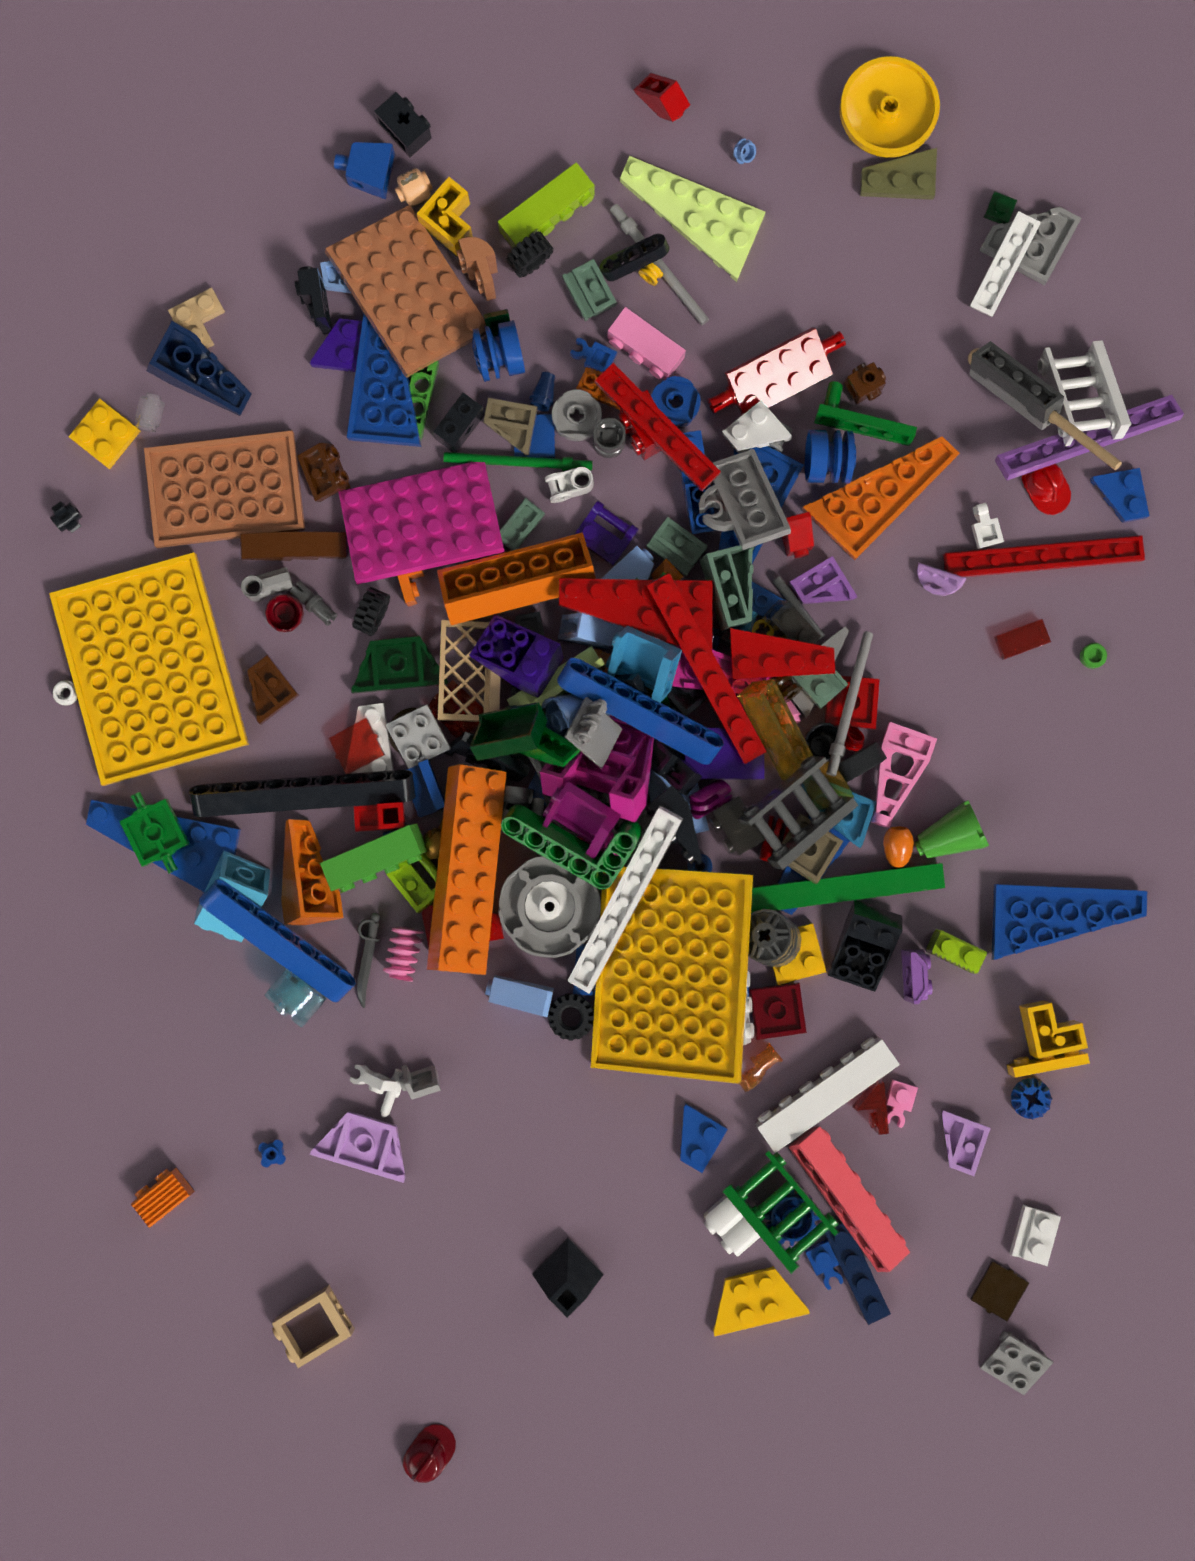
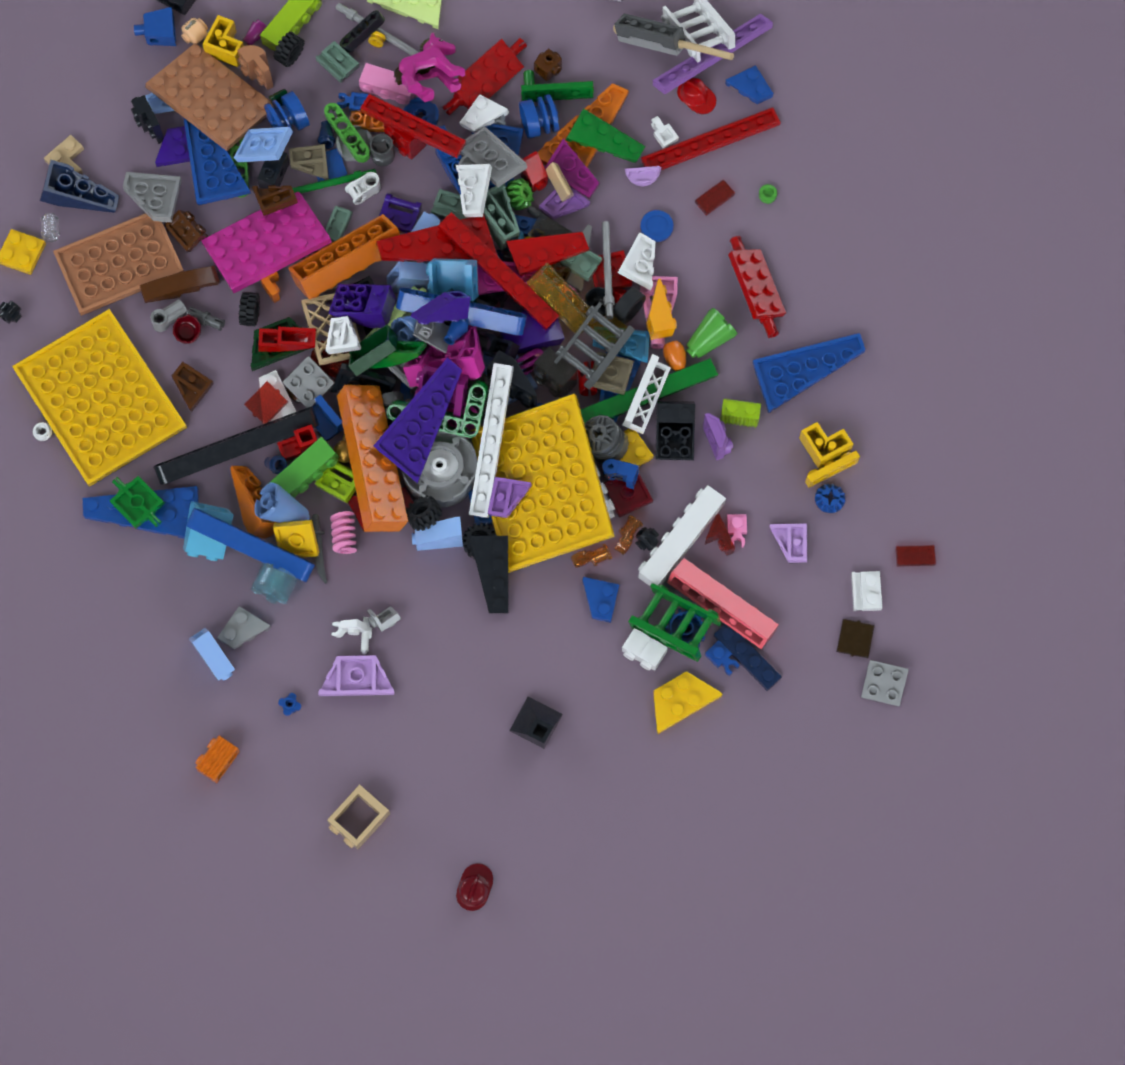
camera: 15 degrees left, 15 degrees down
(192, 1059) = (212, 654): none -> light blue slope
(242, 1035) = (241, 628): none -> light grey wing
(295, 408) = (153, 194): none -> light grey plate
(329, 902) = (279, 505): none -> medium blue cone
(341, 945) = (297, 538): none -> yellow plate
(344, 835) = (276, 463): none -> dark blue cone
(406, 670) = (286, 339): none -> red slope
(448, 465) = (274, 198): none -> reddish brown wing
(454, 386) = (263, 144): none -> light blue plate
(477, 693) = (342, 336): none -> white wing
(492, 213) = (254, 32): none -> magenta cone
(517, 974) = (423, 513): none -> black tyre
(532, 860) = (415, 429): none -> dark purple wing
(572, 399) = (347, 132): none -> bright green beam
(576, 1059) = (492, 566): none -> black wing
(616, 714) = (447, 306): none -> dark purple slope
(621, 975) = (506, 496): none -> medium lavender wing
(626, 738) = (456, 331): none -> blue cone
(705, 339) = (429, 64): none -> dark pink animal
(708, 1086) = (596, 556): none -> clear orange connector
(711, 541) = (474, 186): none -> white wing
(769, 560) = (519, 194): none -> bright green gear
(769, 980) = (621, 471): none -> blue leg
(781, 1083) = (647, 538): none -> black gear
(826, 560) = (559, 181): none -> tan slope
(839, 889) = (642, 388): none -> white fence
(847, 547) = (574, 170): none -> magenta wing
(893, 703) = (639, 262): none -> white wing
(895, 792) = (660, 320): none -> light orange slope
(901, 508) = (598, 134): none -> green wing
(933, 656) = (657, 225): none -> blue piece
(1036, 781) = (757, 285): none -> red plate
(1112, 1208) = (915, 555): none -> clear red tile

